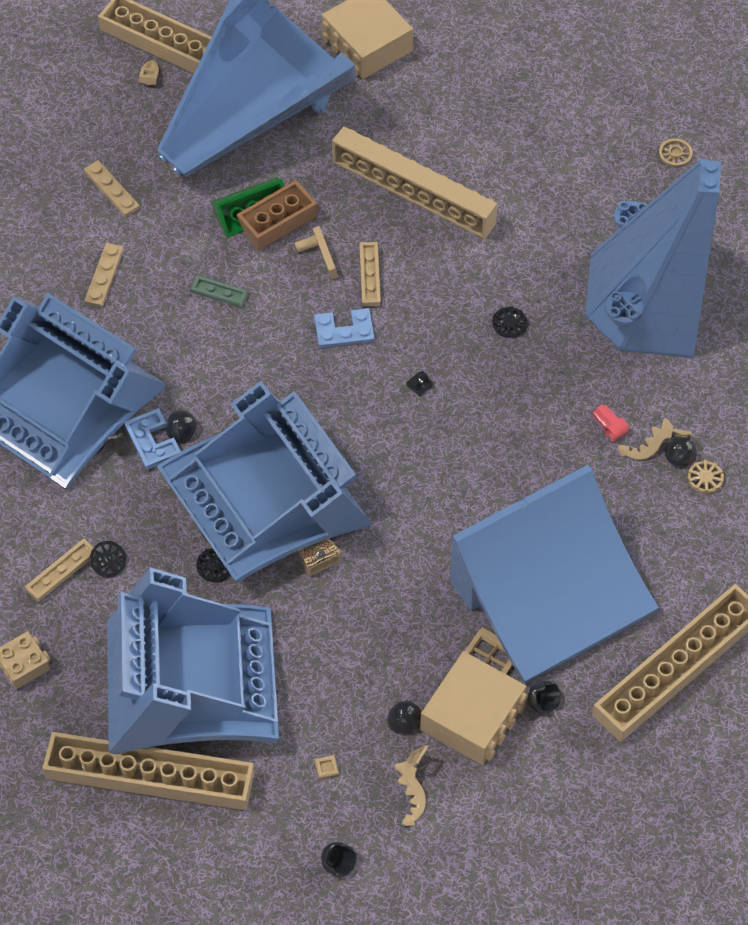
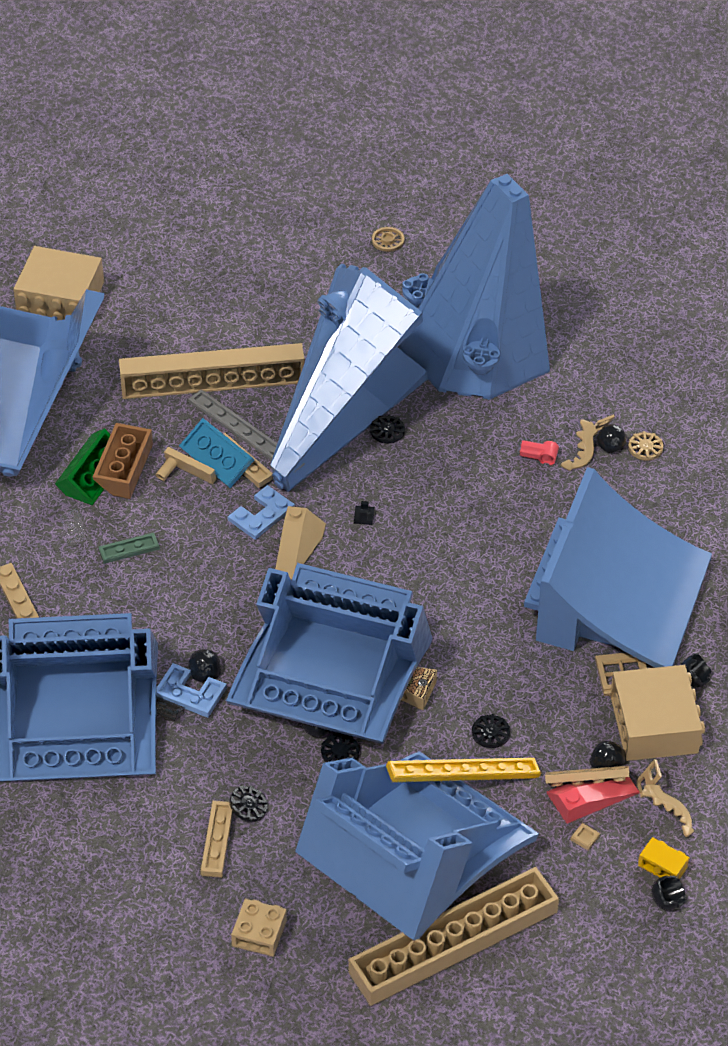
camera: 40 degrees left, 10 degrees down
(275, 647) = (462, 769): none -> yellow tile
(340, 630) = (490, 731): none -> black wheel
(350, 368) = (299, 538): none -> tan wedge
(354, 255) = (217, 451): none -> dark azure tile
(358, 736) = (586, 798): none -> coral wedge
(362, 831) = (662, 859): none -> yellow brick
(367, 716) = (597, 775): none -> tan plate
(398, 253) = (234, 424): none -> light grey tile
(499, 256) = (348, 372): none -> medium blue piece

